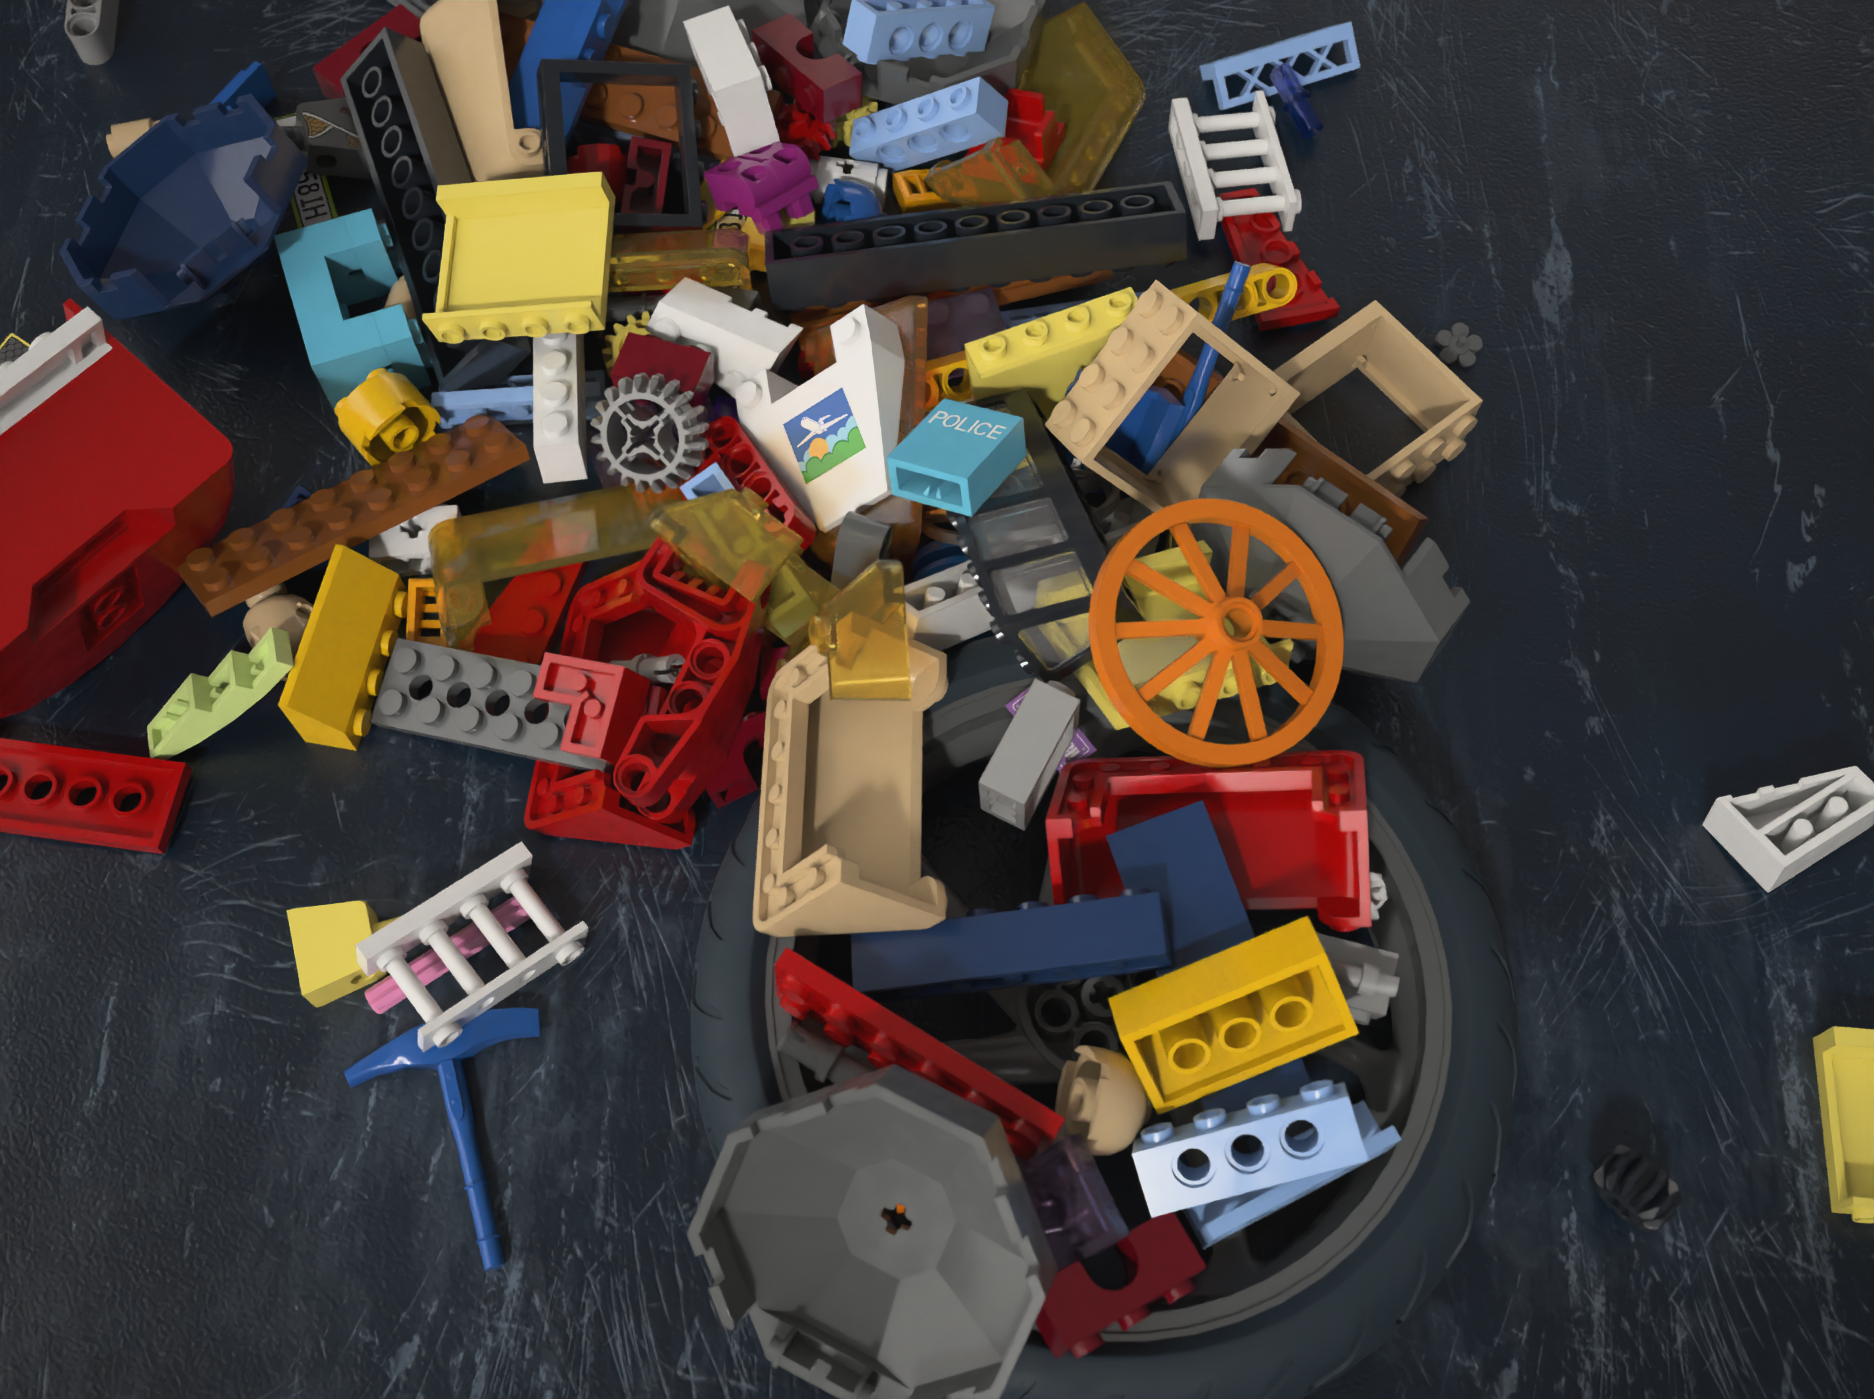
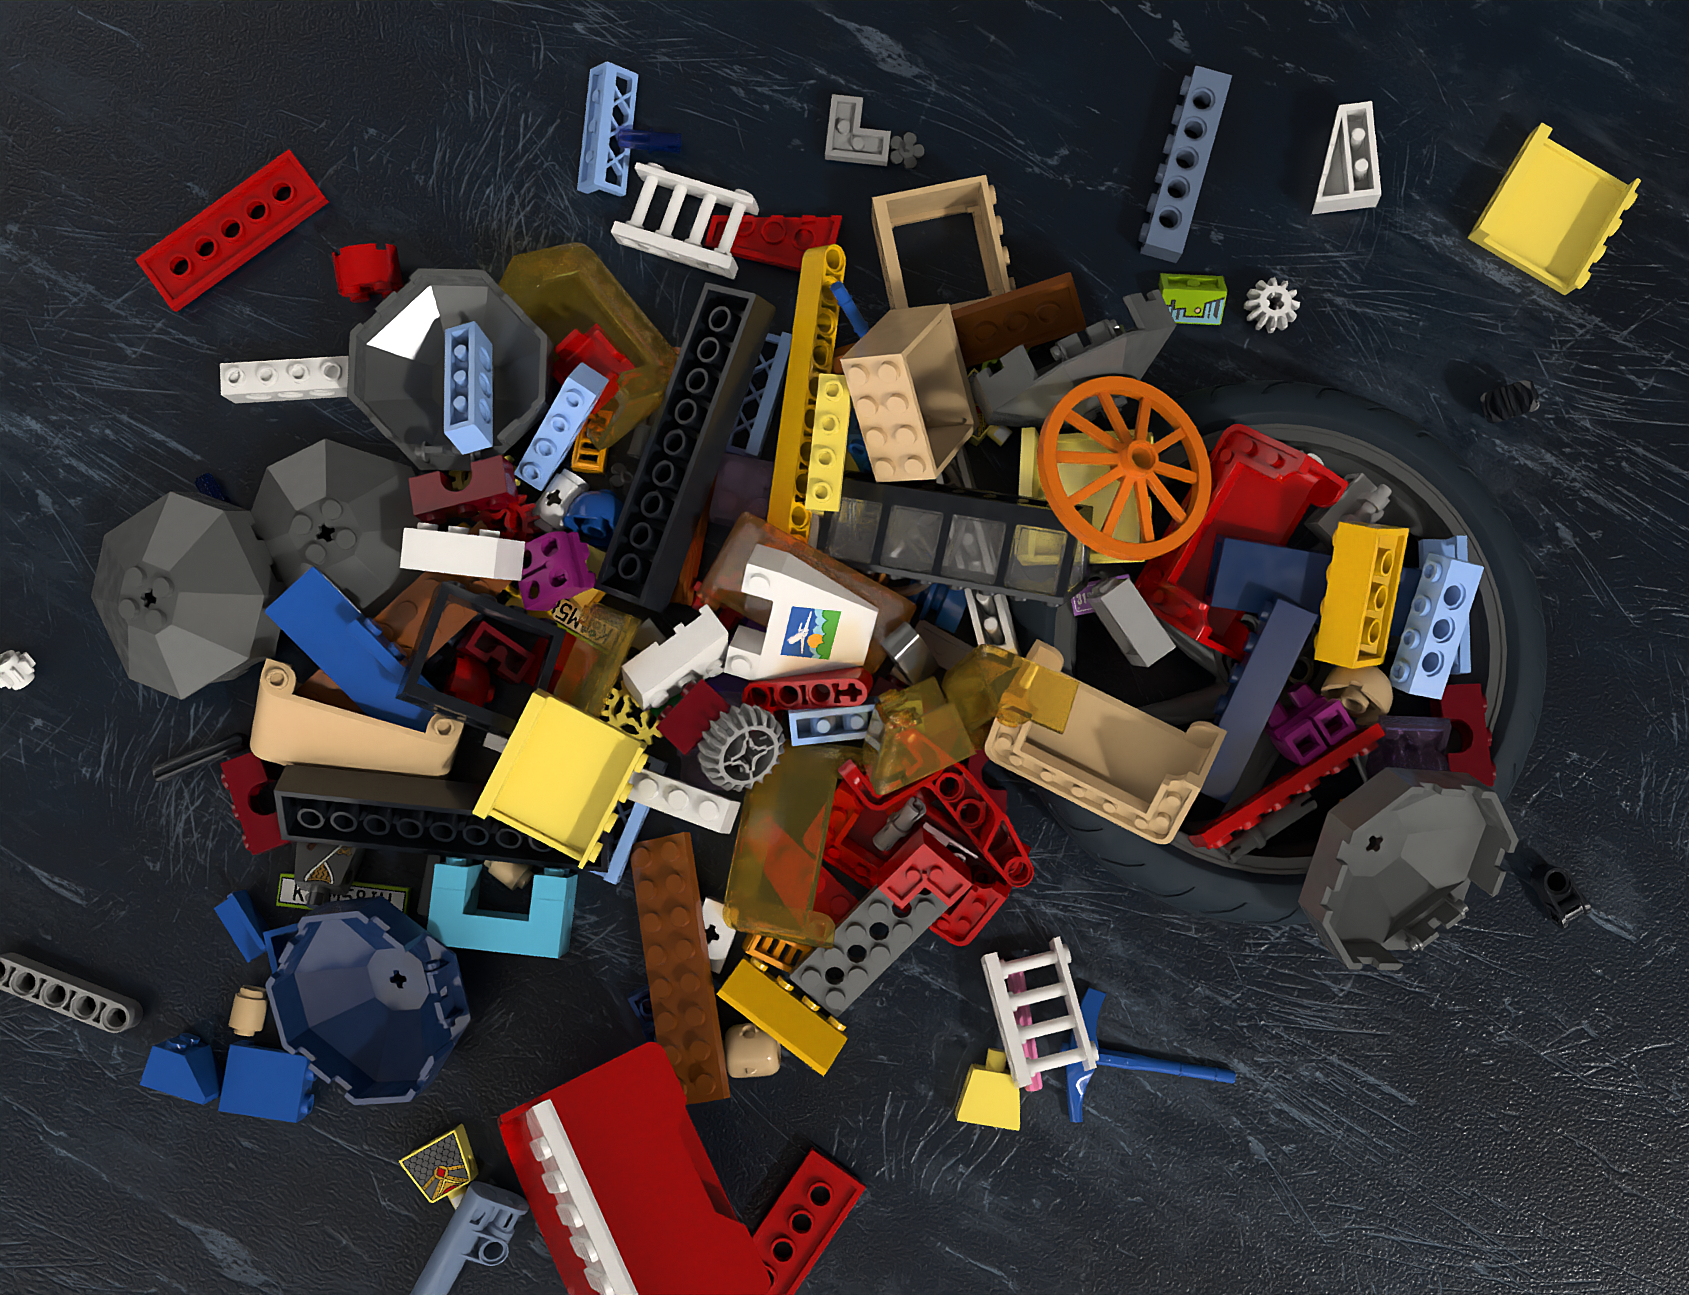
camera: 60 degrees left, 20 degrees up
(47, 103) = (184, 1069): none -> blue slope
(55, 182) = (267, 1083): none -> blue panel
(210, 703) = (781, 1110): yellowish green slope -> none
(386, 416) = (611, 918): yellow brick -> none
(957, 456) = (890, 557): medium azure brick -> none
(1012, 1053) = (1307, 724): none -> magenta hips
(1431, 281) = (850, 142): none -> light grey plate
(1496, 723) = (1194, 297): none -> lime panel
(1563, 808) = (1260, 302): none -> white gear
(1763, 628) = (1210, 89): none -> sand blue brick

